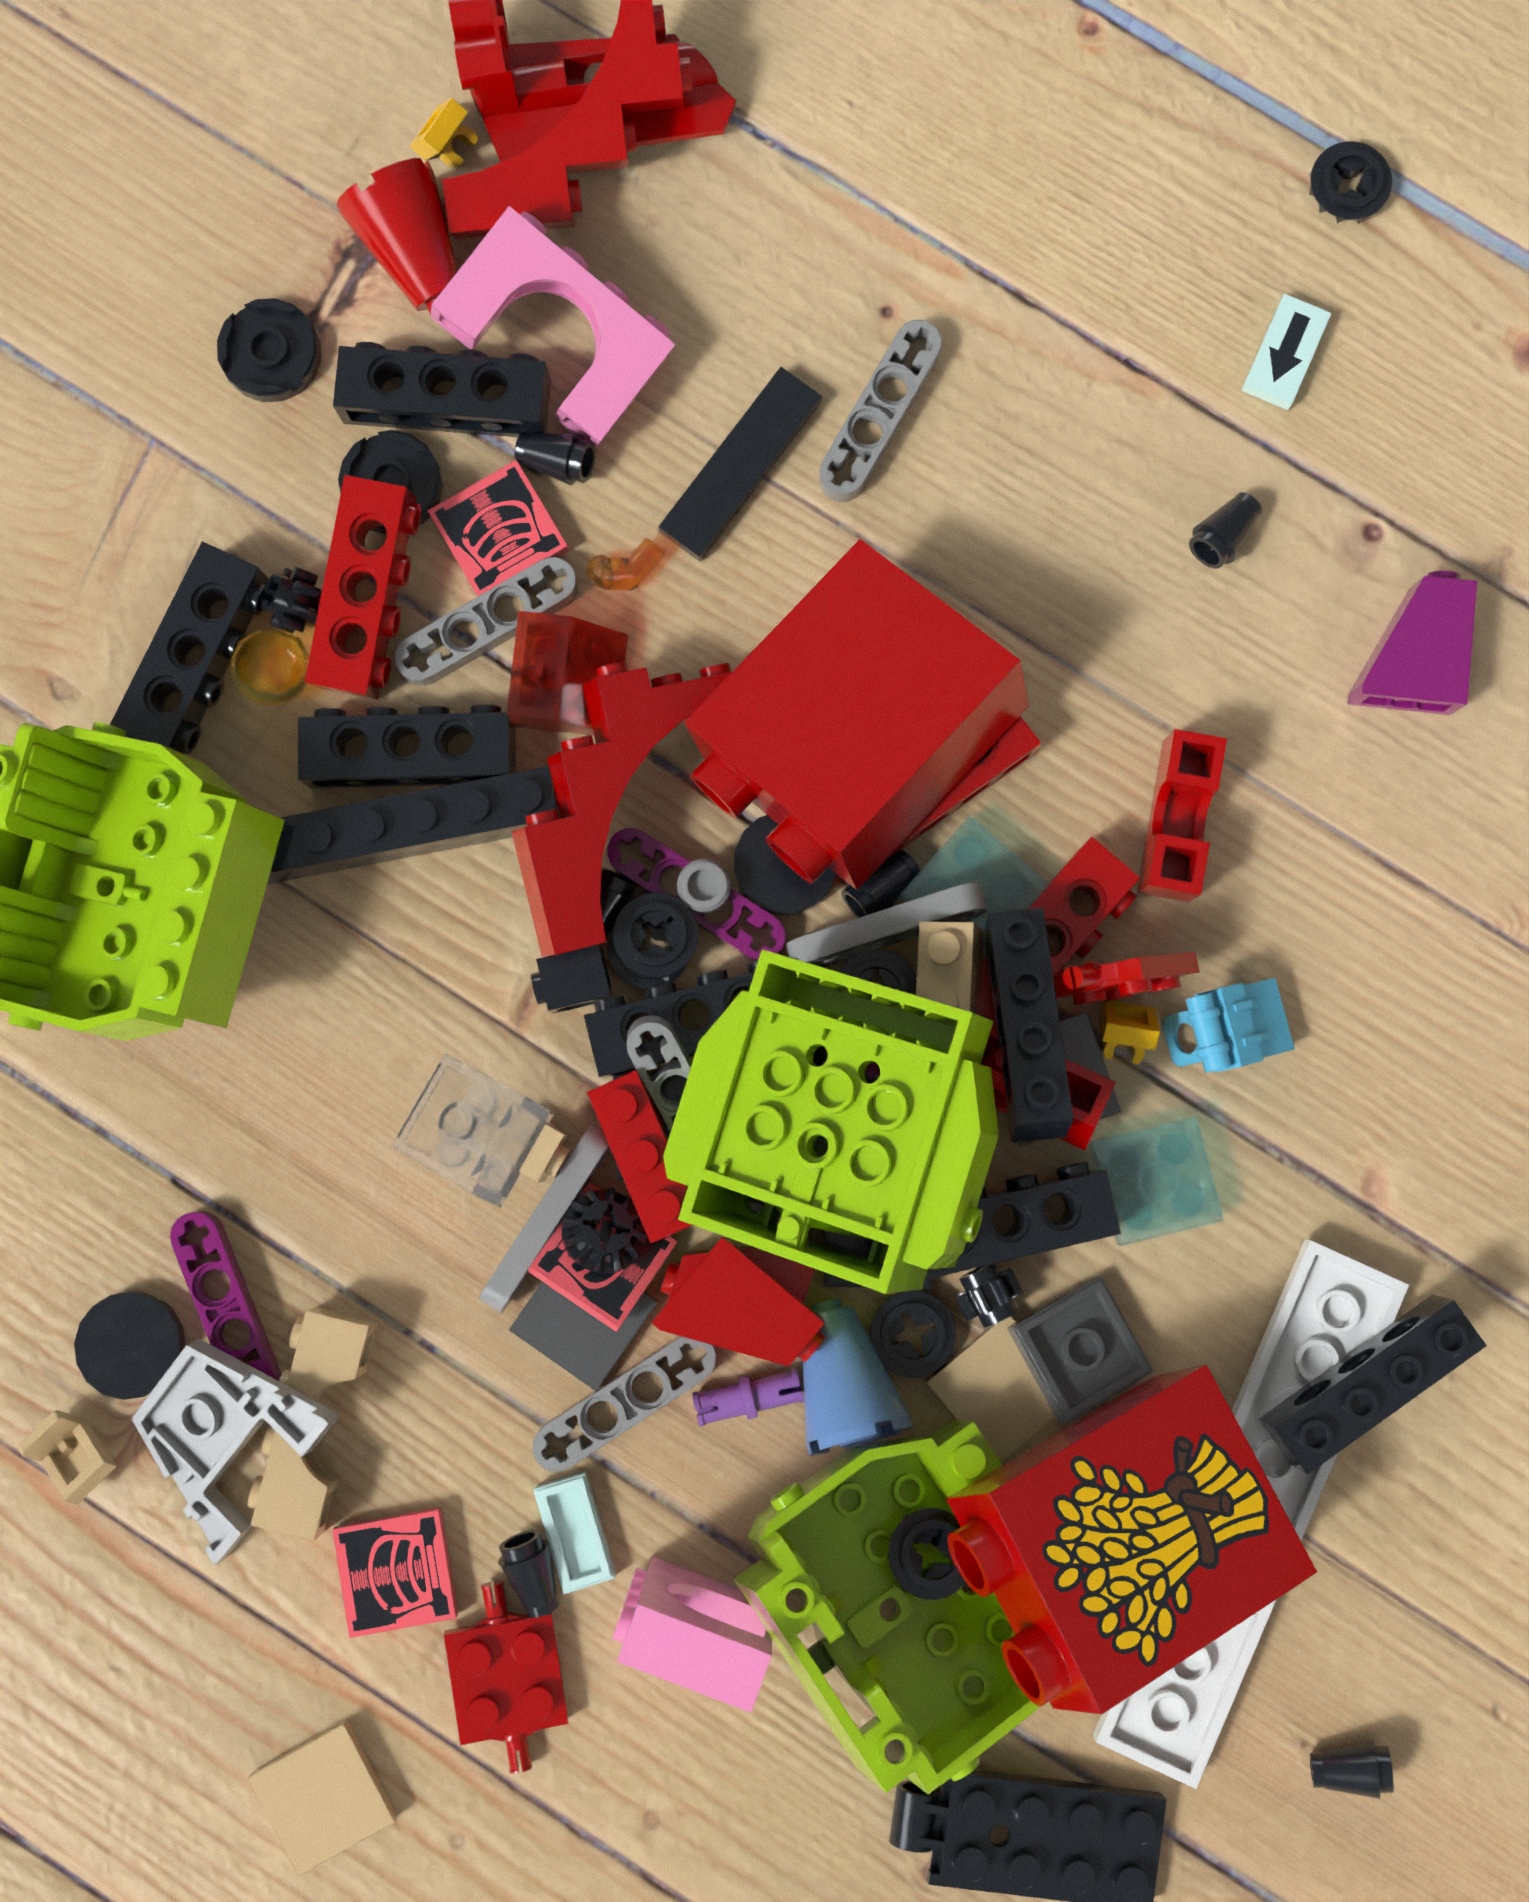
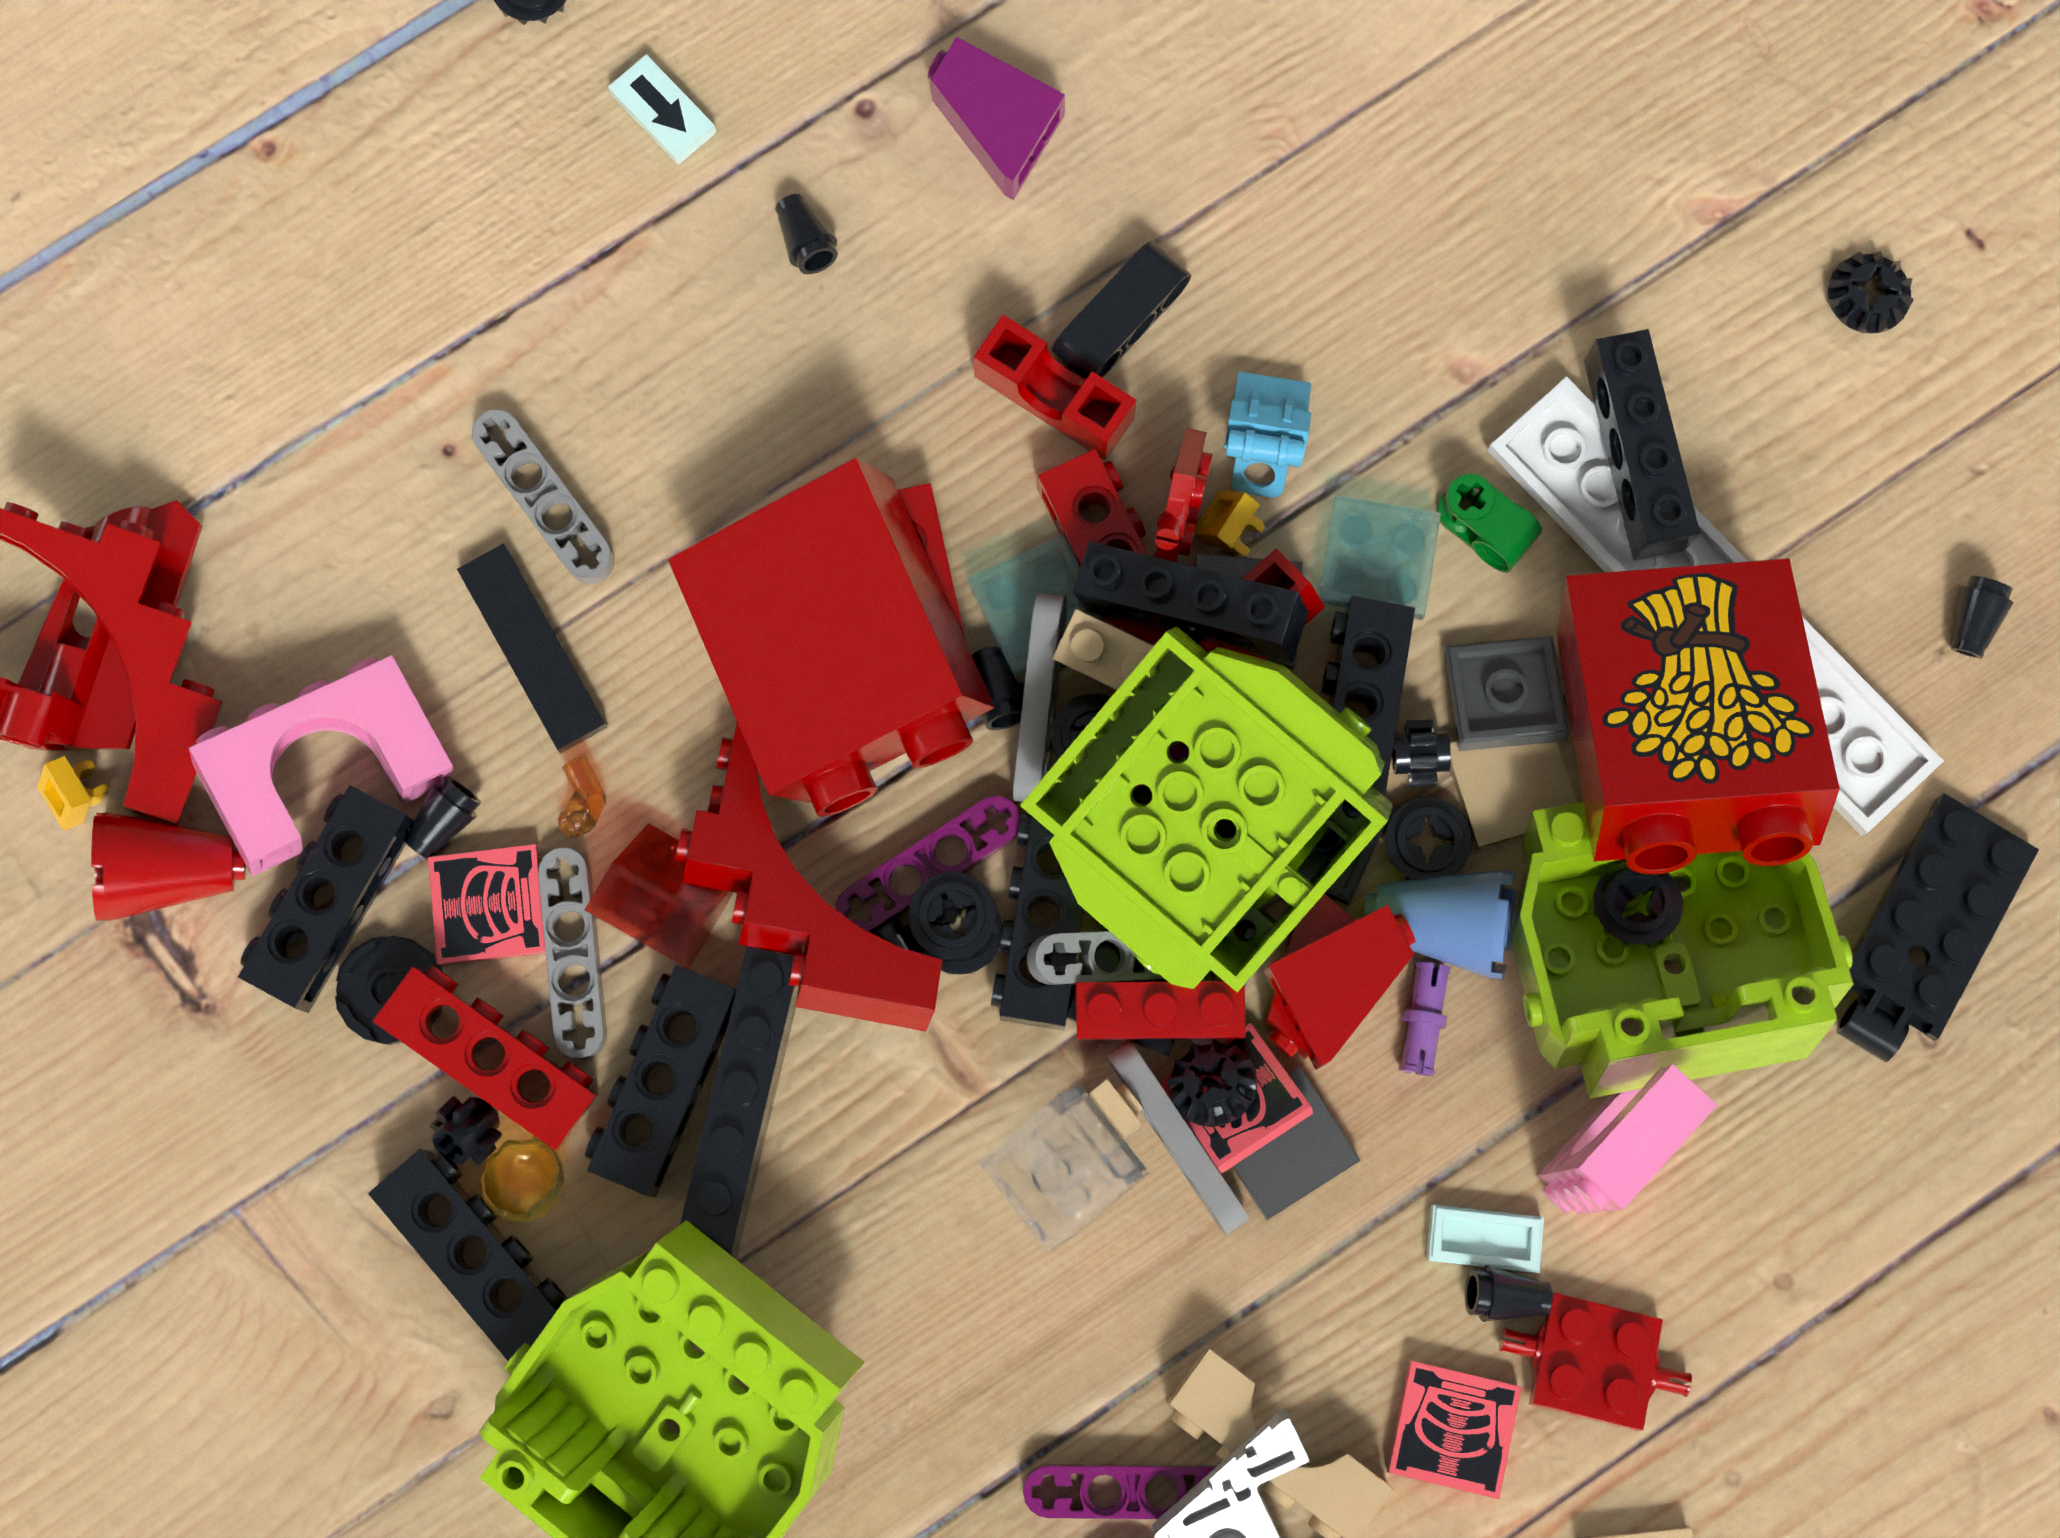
camera: 70 degrees left, 5 degrees down
(269, 350) = (200, 1054): black tile -> none
(572, 979) = (960, 1016): black brick -> none
(628, 1406) = (1374, 1138): light grey beam -> none
(703, 886) = (925, 851): light grey tile -> none
(769, 880) = (938, 790): black tile -> none
(1234, 1273) = (1492, 525): none -> green piece
(1283, 847) = (1122, 311): none -> black beam

